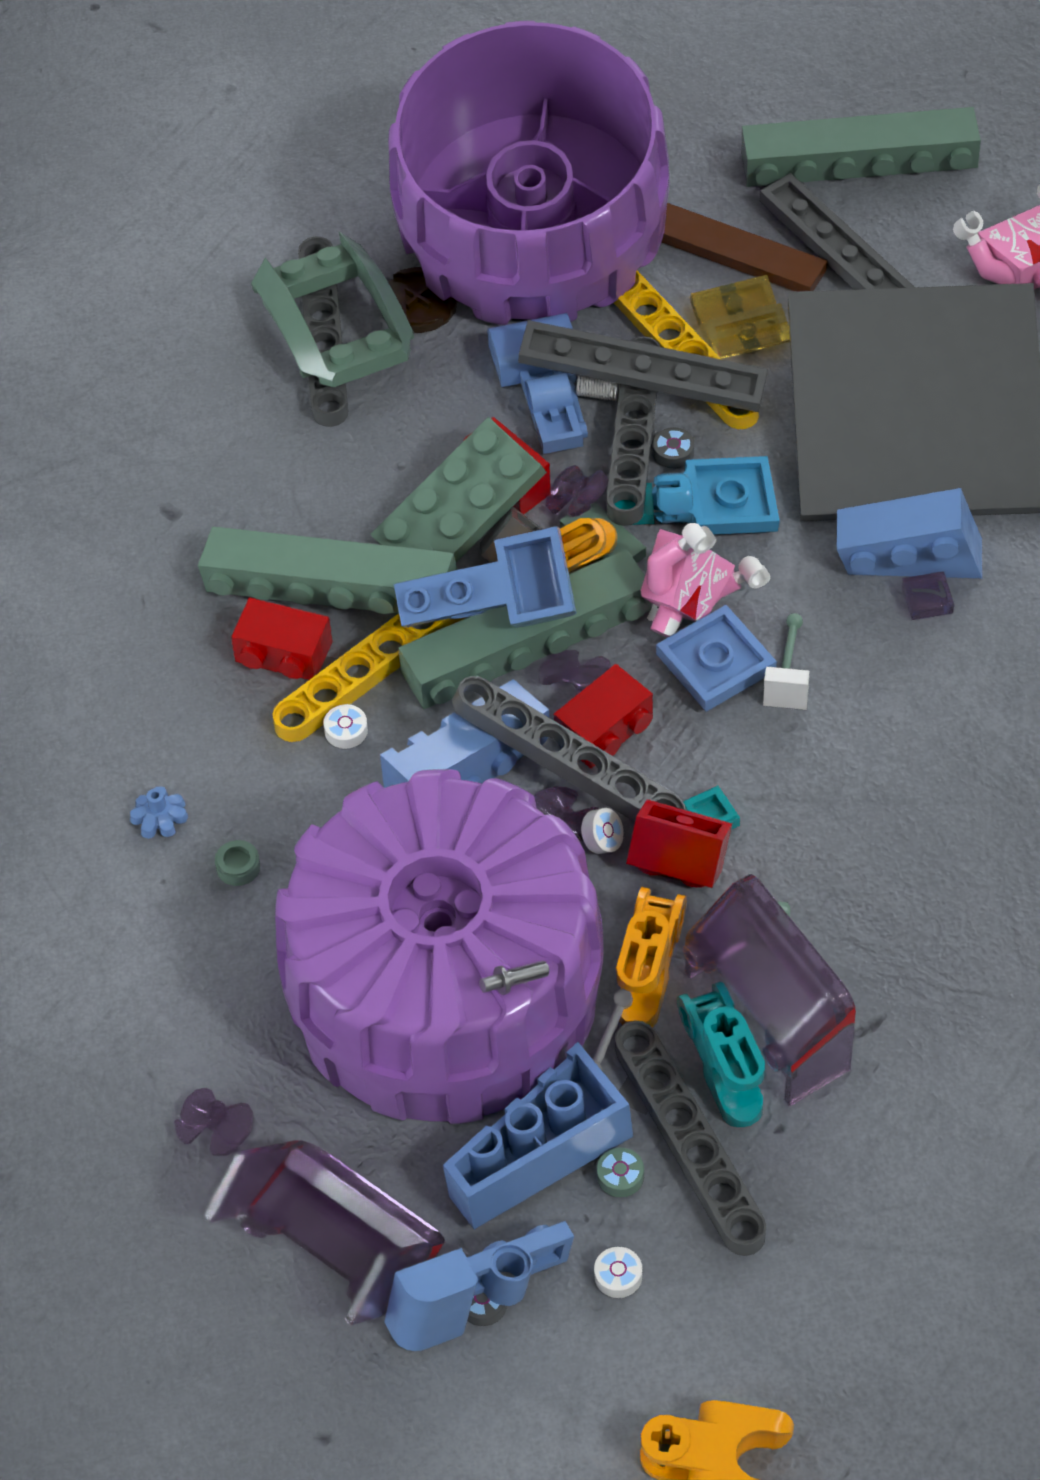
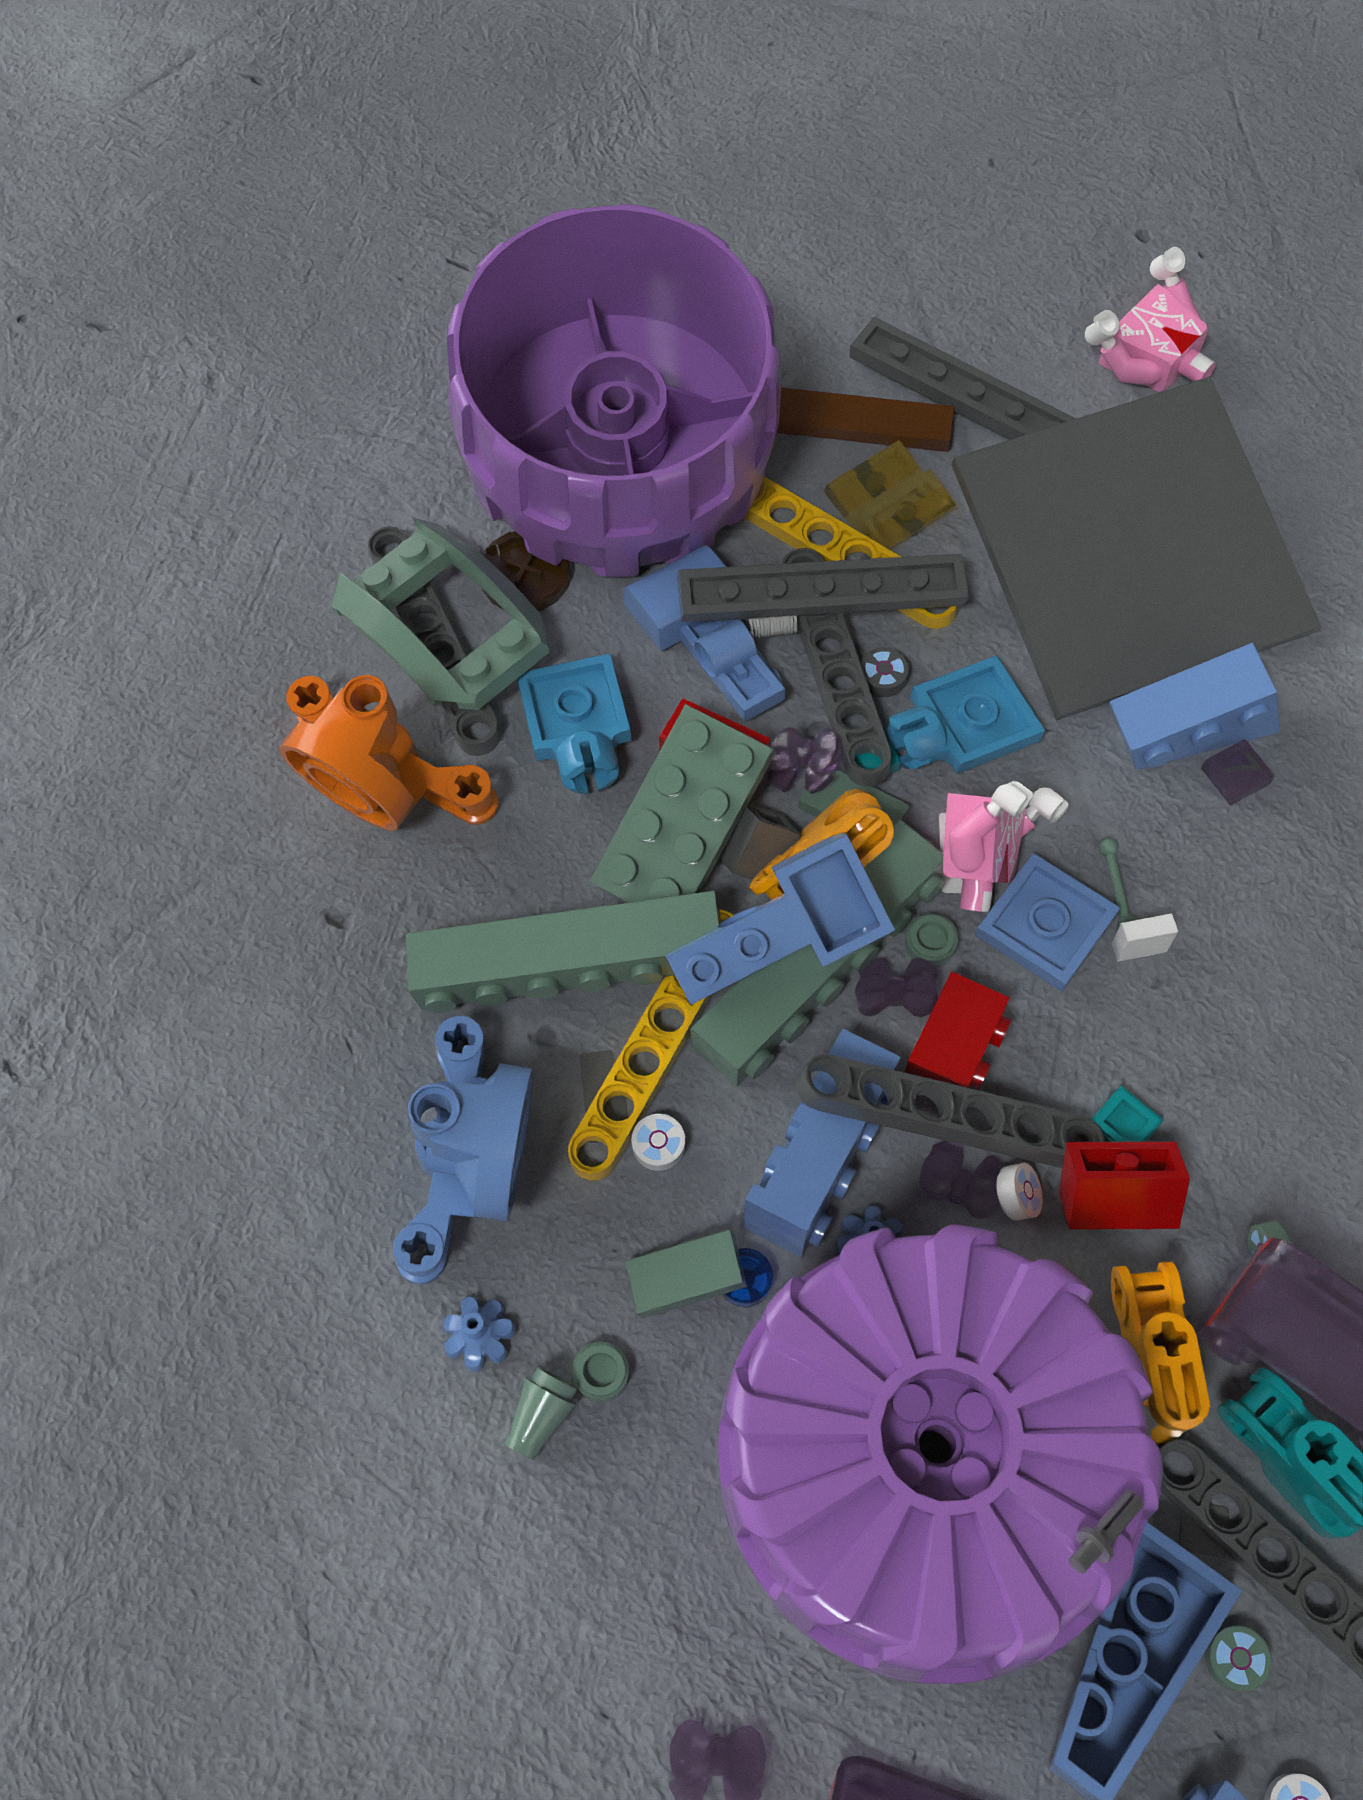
camera: 20 degrees left, 10 degrees up
(183, 868) = (539, 1412): none -> sand green cone
(202, 678) = (468, 1149): none -> medium blue piece
(234, 403) = (370, 760): none -> orange piece
(281, 639) = (553, 1044): red brick -> none
(307, 809) = (686, 1274): none -> sand green tile
(409, 416) = (576, 719): none -> dark azure plate
(621, 647) = (931, 939): none -> sand green tile
(861, 146) = (931, 268): sand green brick -> none

